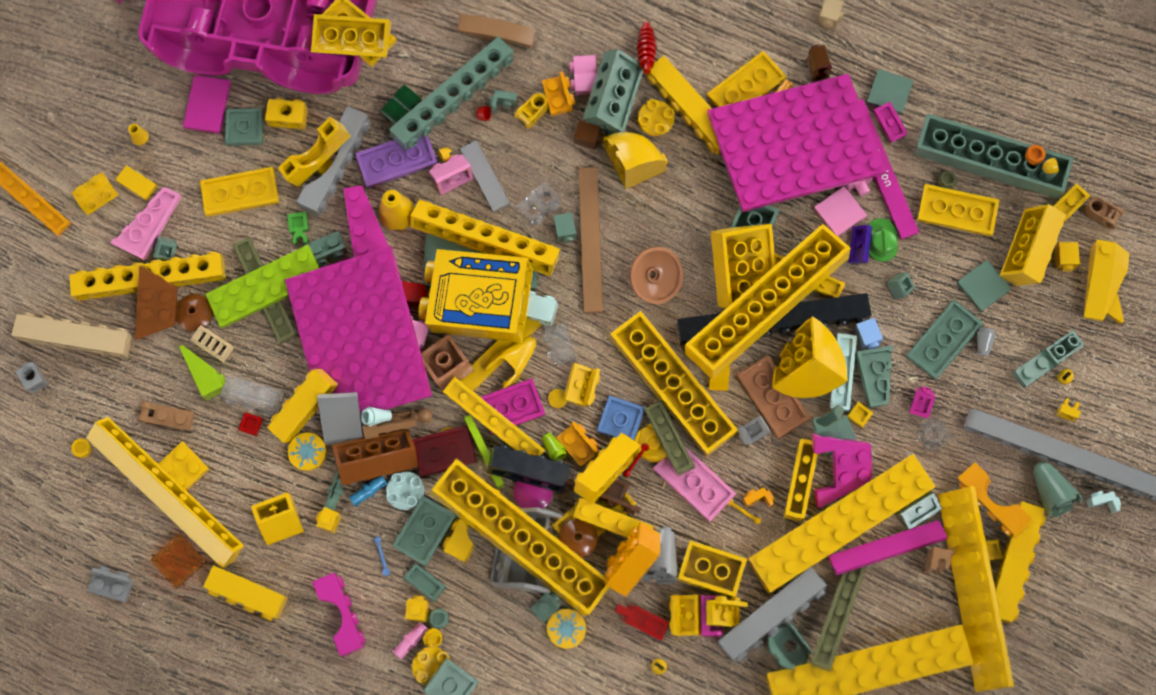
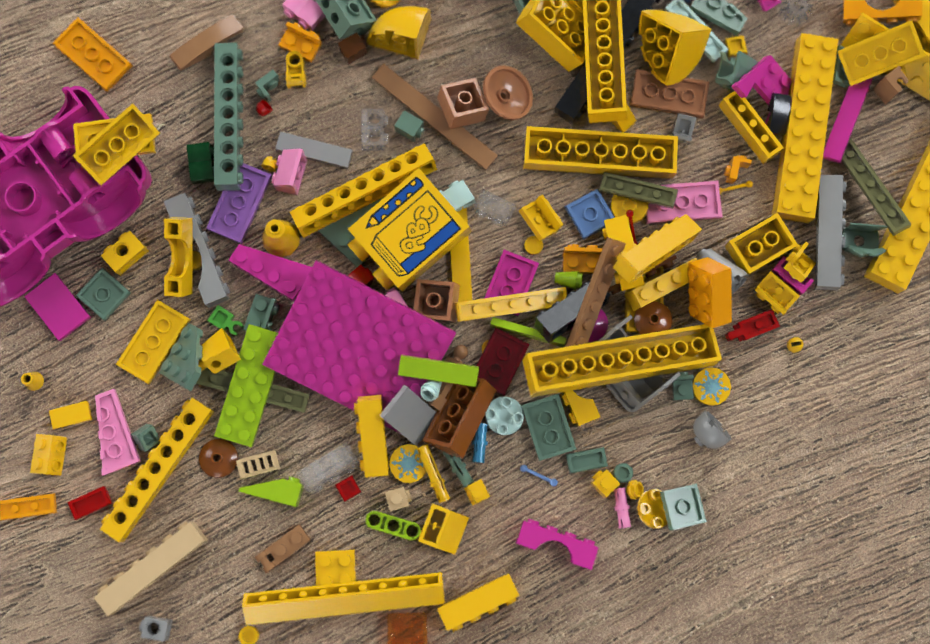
camera: 55 degrees left, 5 degrees up
(84, 252) = (90, 503): none -> red tile
(154, 304) = (186, 481): dark orange wing -> none
(236, 225) = (183, 361): none -> sand green plate
(245, 472) = (386, 518): none -> lime beam
(268, 242) = (218, 352): none -> yellow torso
(272, 466) = (398, 498): none -> tan brick
(310, 482) = (435, 478): none -> yellow pin
(390, 408) = (438, 370): none -> lime tile
(516, 356) = (475, 246): yellow animal -> none
(528, 656) = (709, 431): none -> light grey cylinder
(553, 472) = (595, 293): none -> medium nougat plate
(617, 249) = (463, 103): none -> nougat brick
(629, 487) = (656, 248): none -> yellow brick
(831, 492) = (780, 112): none -> black slope
(952, 528) = (881, 53): none -> yellow plate

